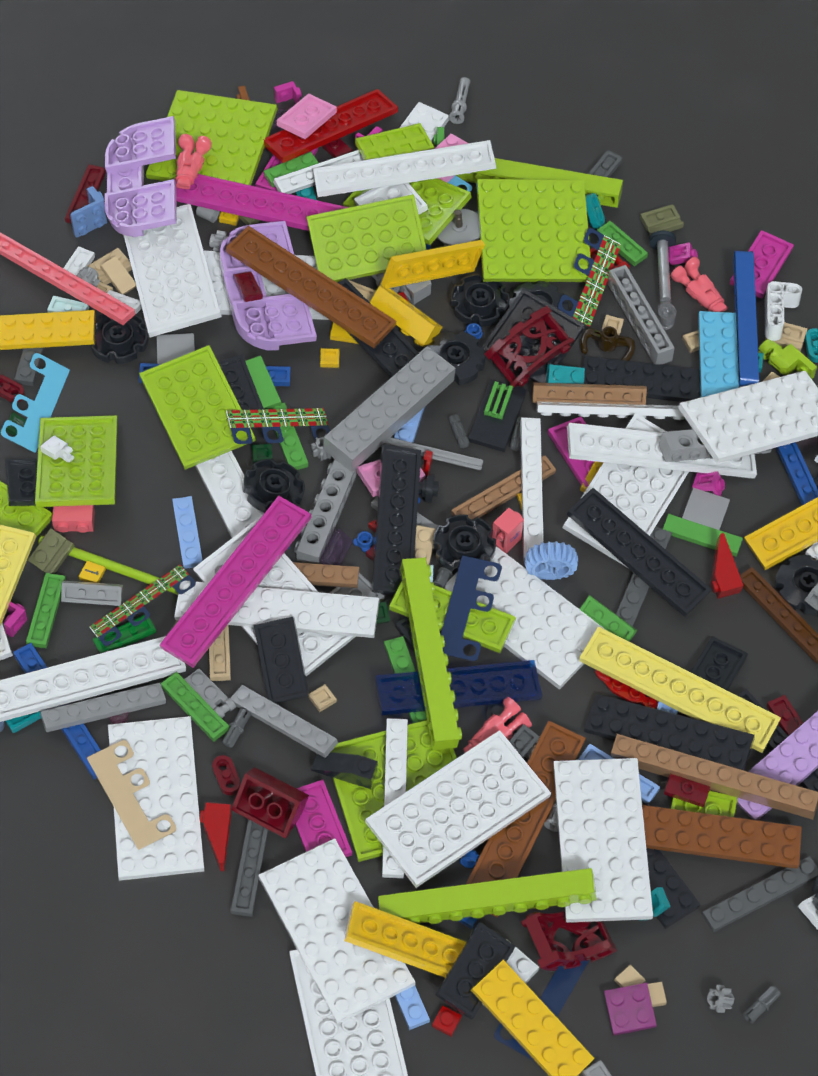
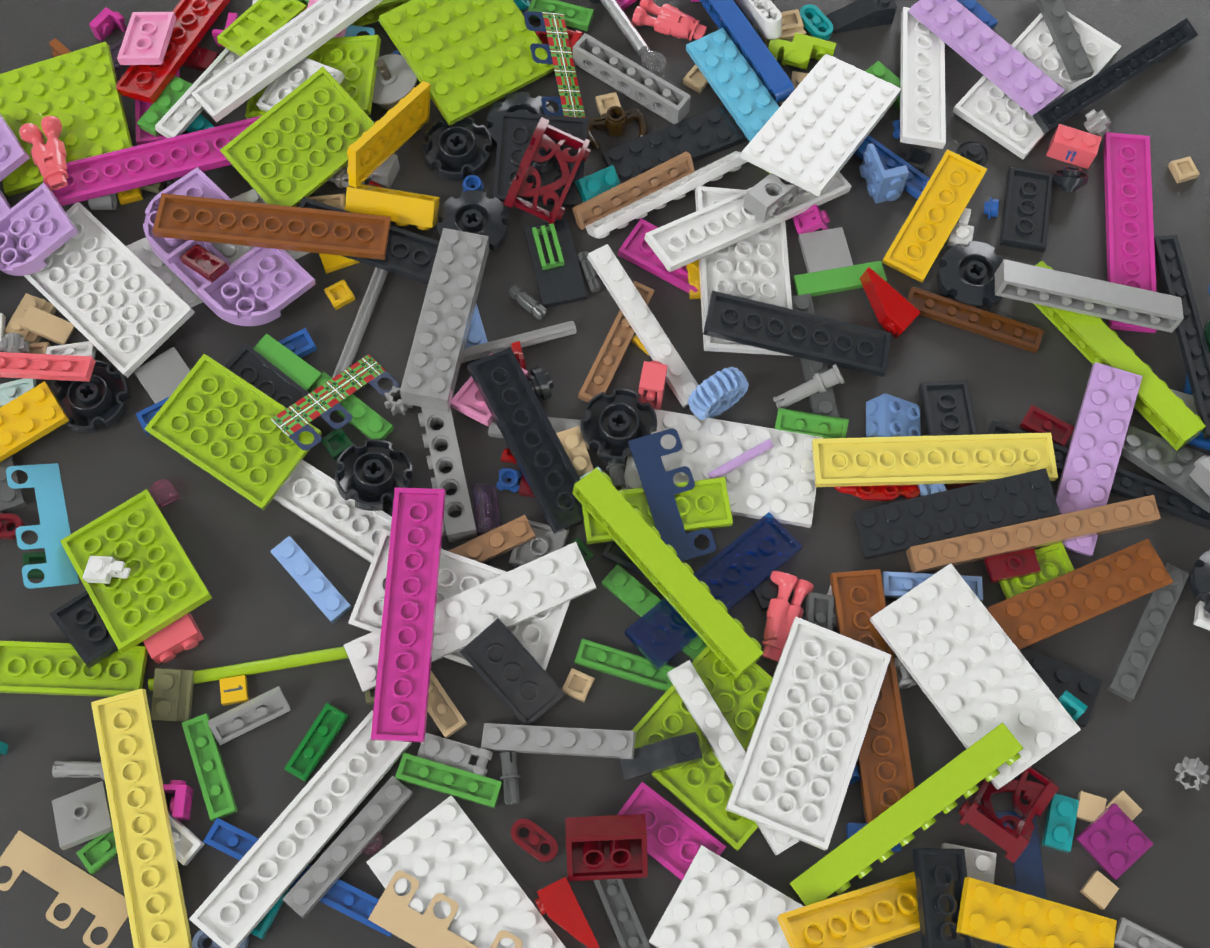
camera: 30 degrees left, 10 degrees up
(126, 424) = (163, 492): none -> clear pink tile
(136, 604) = (308, 698): piece -> none
(217, 239) = (134, 227): light grey gear -> none
(334, 382) = (361, 320): none -> light grey axle
(360, 701) = (622, 665): none -> bright green tile
(538, 614) = (741, 459): none -> lavender bar
(597, 1034) = (1099, 890): none -> tan tile
(600, 977) = (1060, 823): none -> teal plate
(630, 593) = (820, 382): none -> light grey pin
(673, 646) = (892, 417): none -> medium blue bracket
(783, 484) = (881, 183): none -> medium blue bracket

